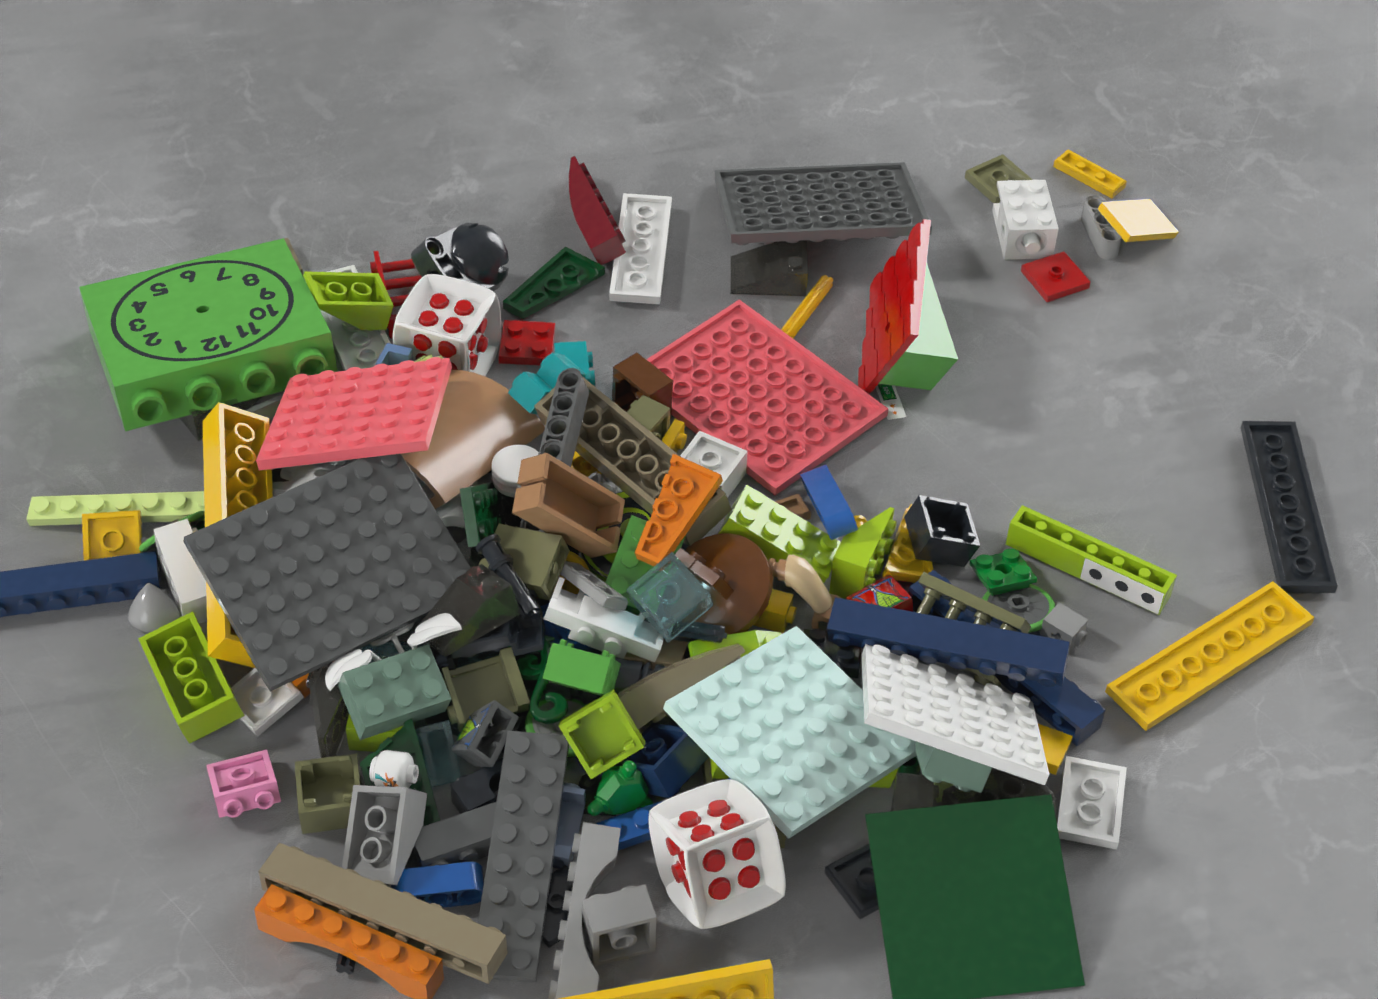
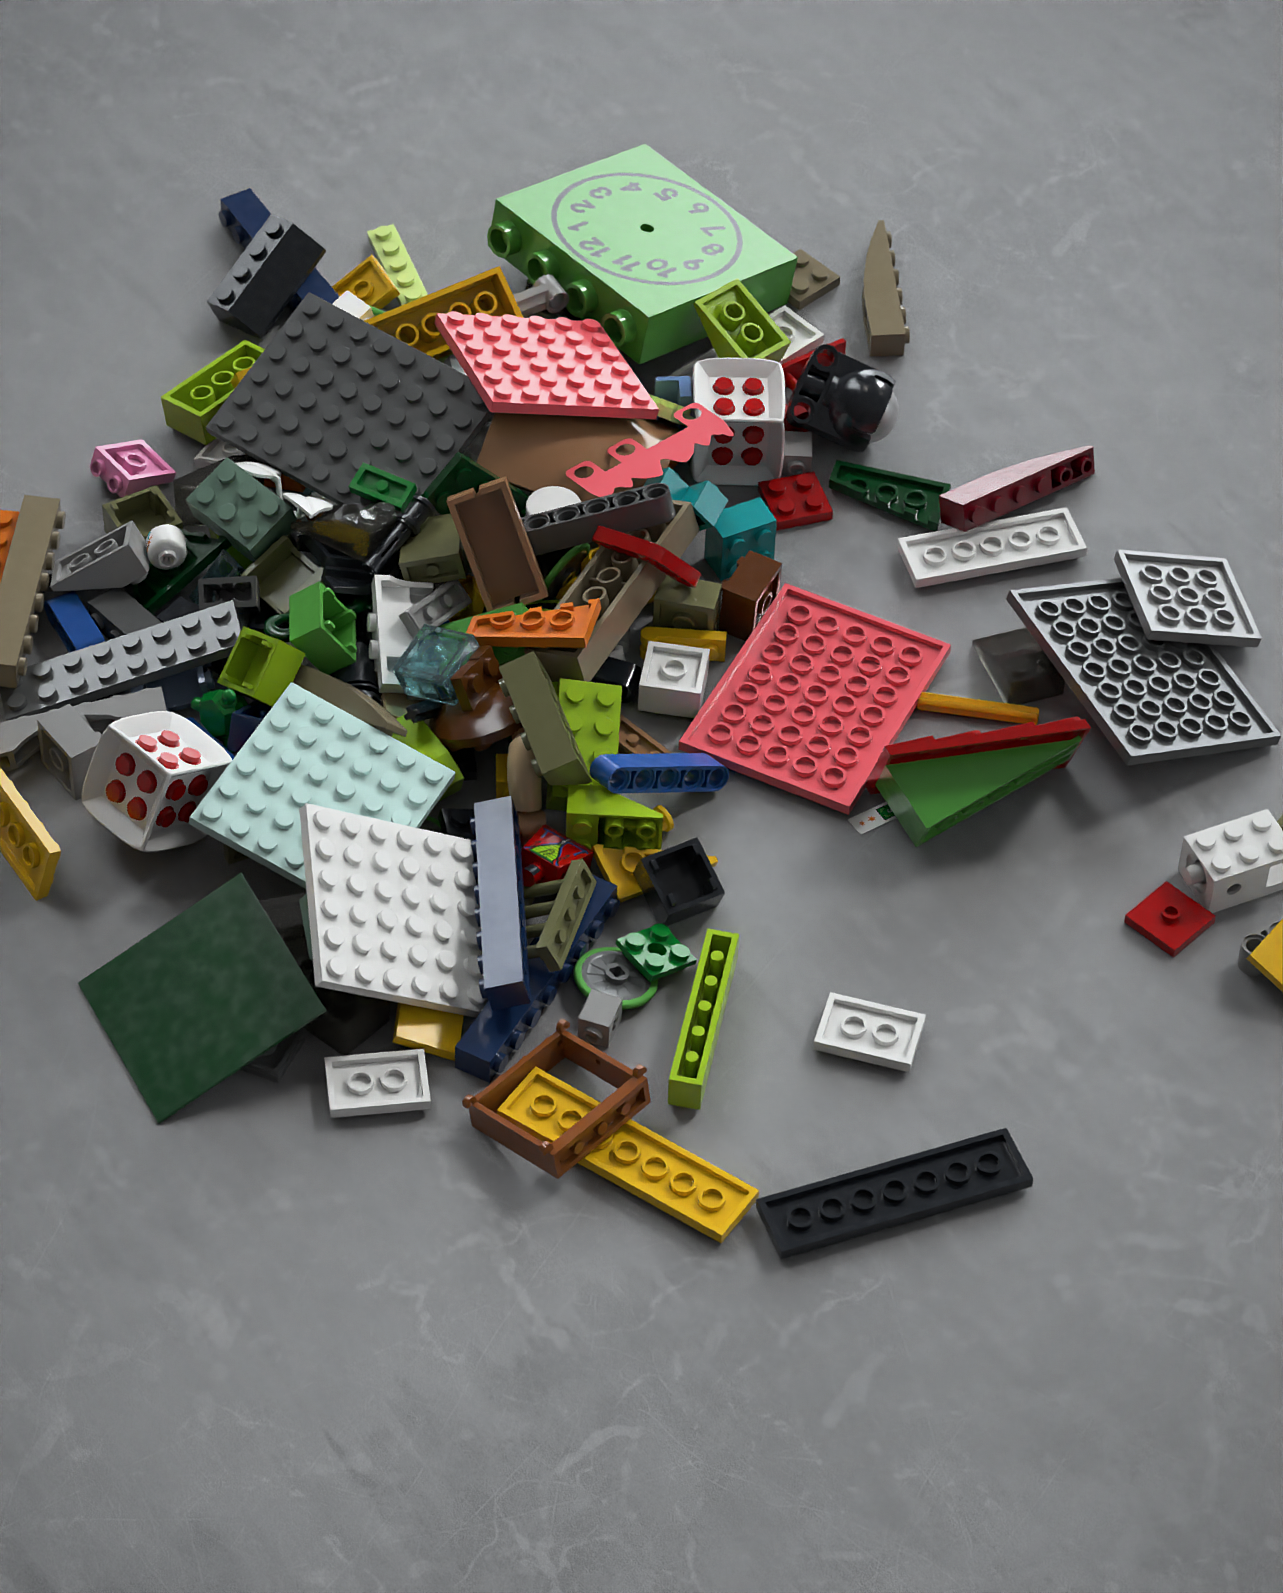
camera: 70 degrees right, 0 degrees up
(62, 599) = (265, 277): none -> black slope
(242, 396) = (543, 295): none -> light grey piece
(325, 220) = (882, 299): none -> dark tan slope
(442, 569) = (382, 487): none -> green plate
(502, 386) = (646, 462): none -> coral piece
(616, 417) = (649, 552): none -> red beam
(756, 160) = (1187, 598): none -> light grey plate
(790, 535) = (543, 722): none -> olive slope
(1122, 470) = (869, 1032): none -> white plate
(1189, 648) = (588, 1132): none -> dark orange window

